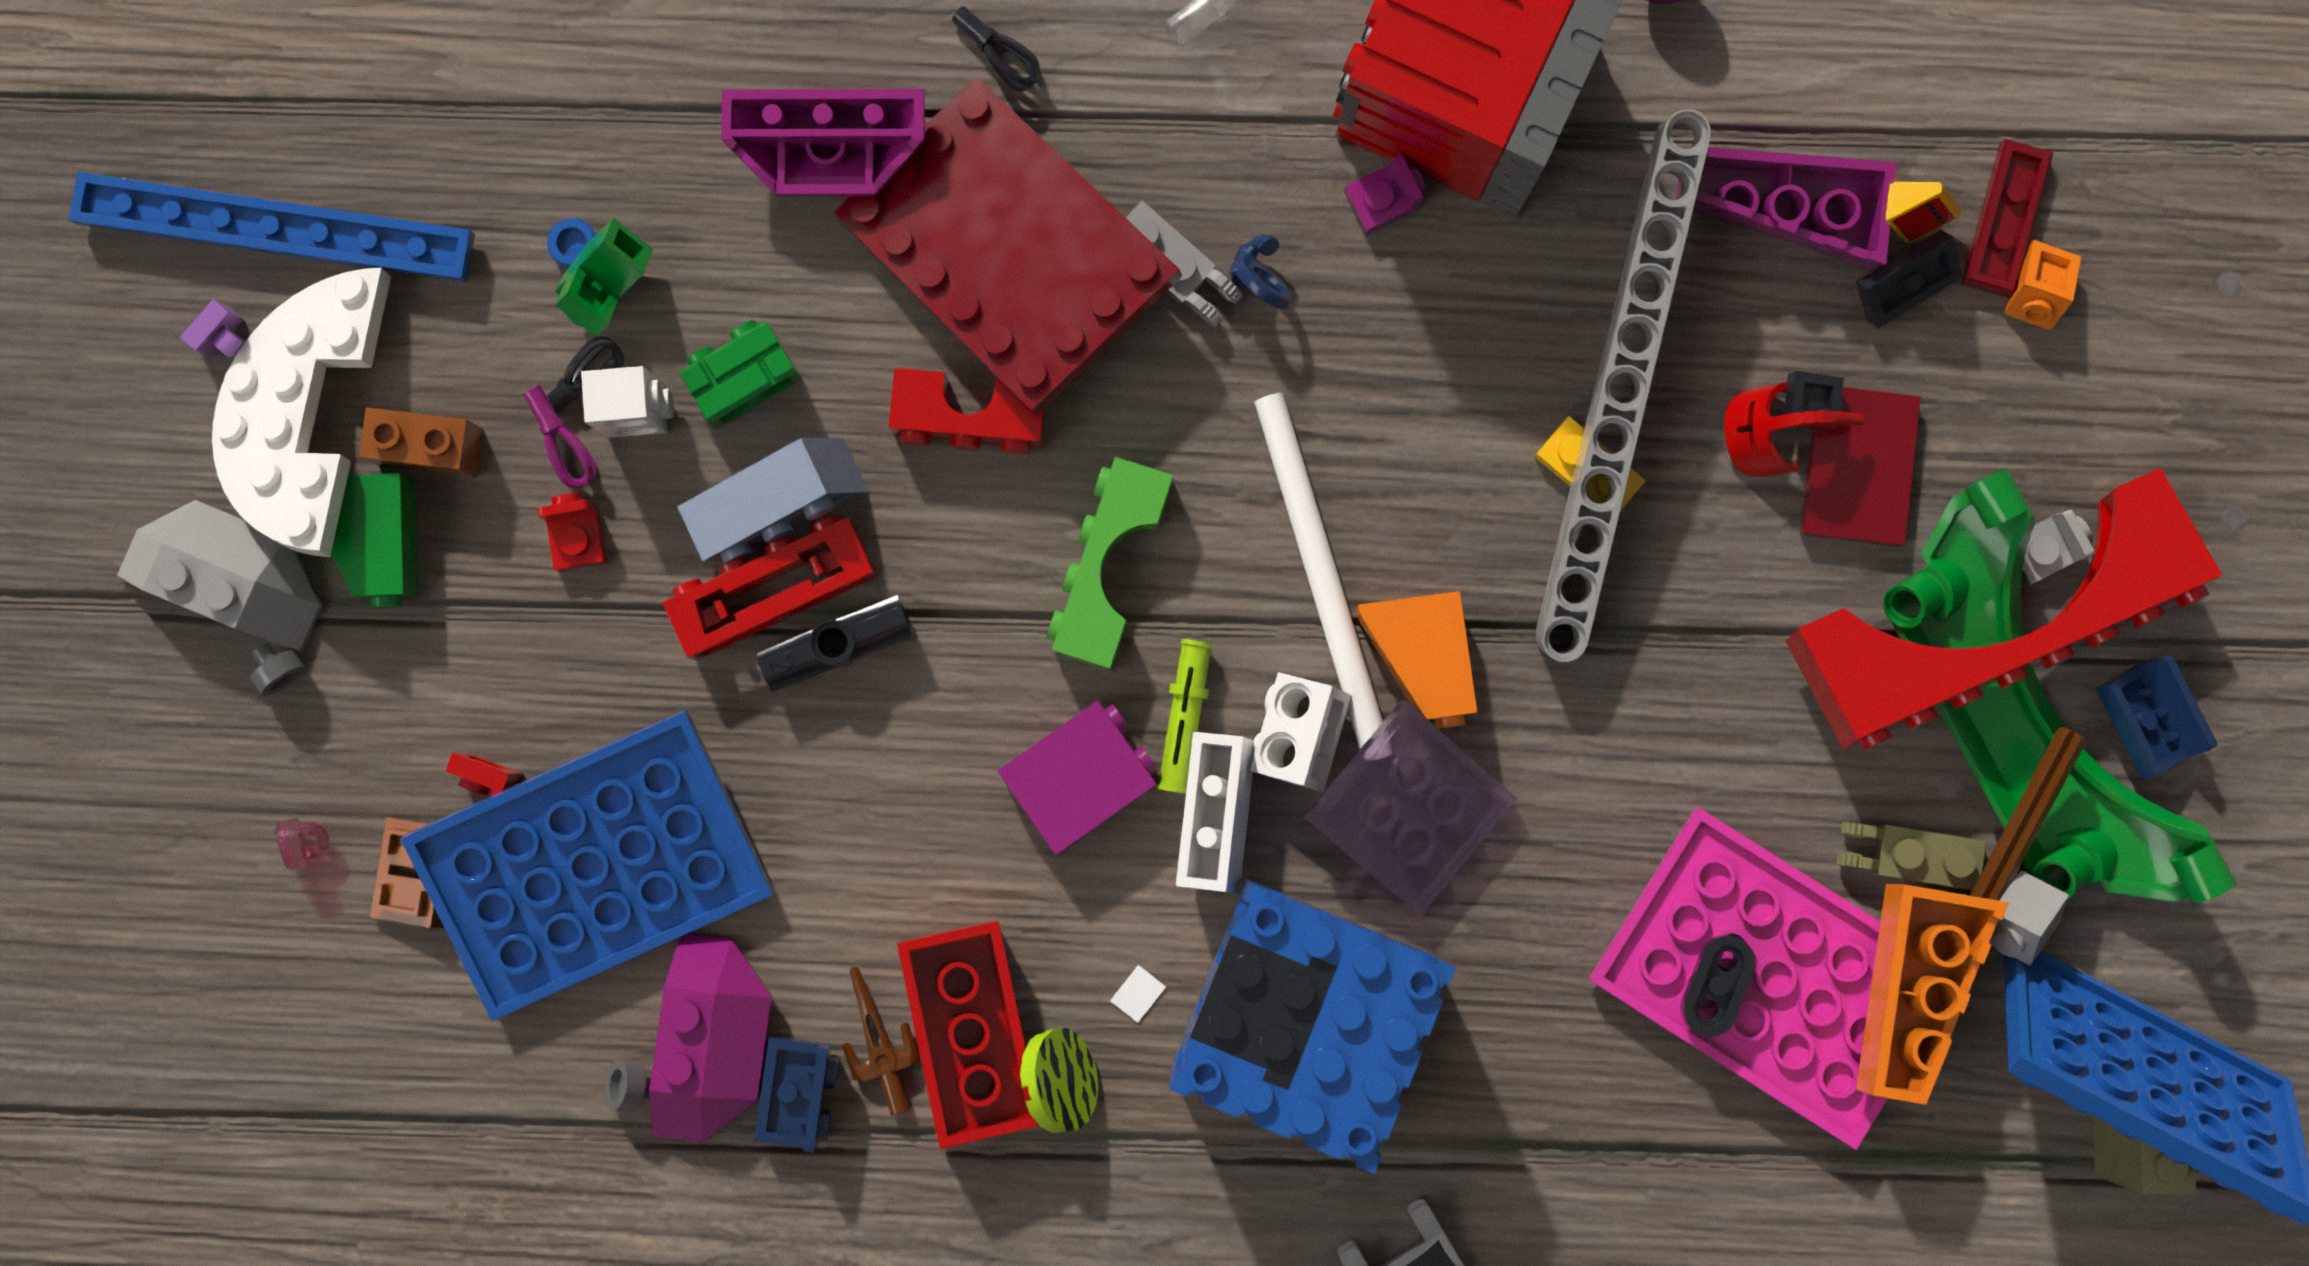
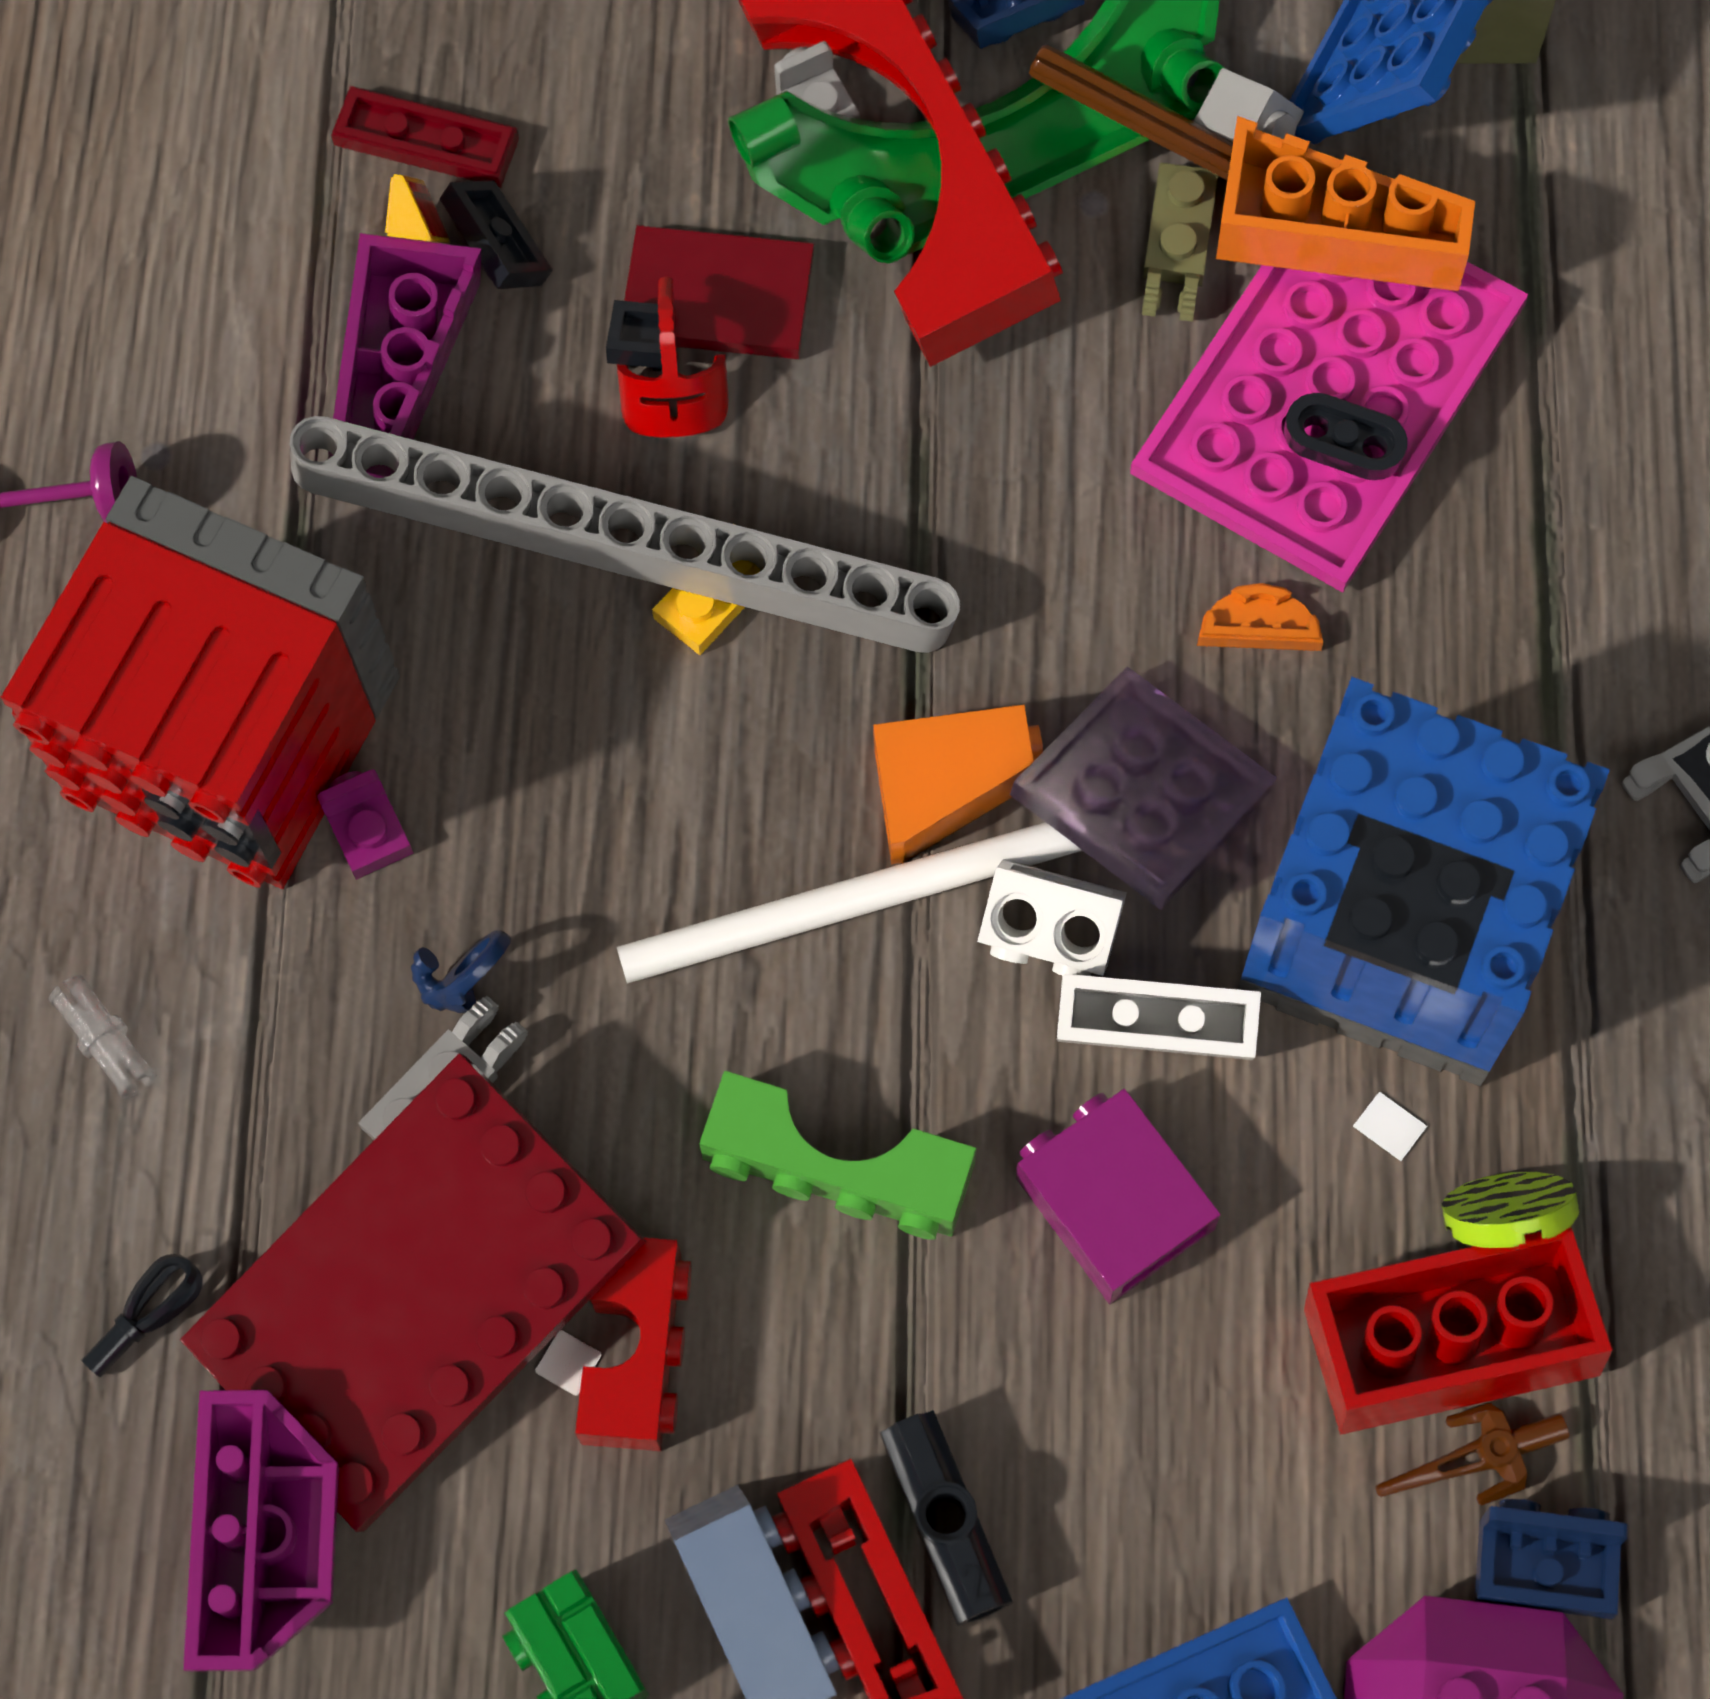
camera: 95 degrees left, 15 degrees down
(960, 365) = (565, 1360): none -> white sticker
(1193, 656) = (957, 1053): lime pin -> none
(1564, 910) = (1261, 619): none -> orange tile
(2044, 285) = (508, 93): orange bracket -> none

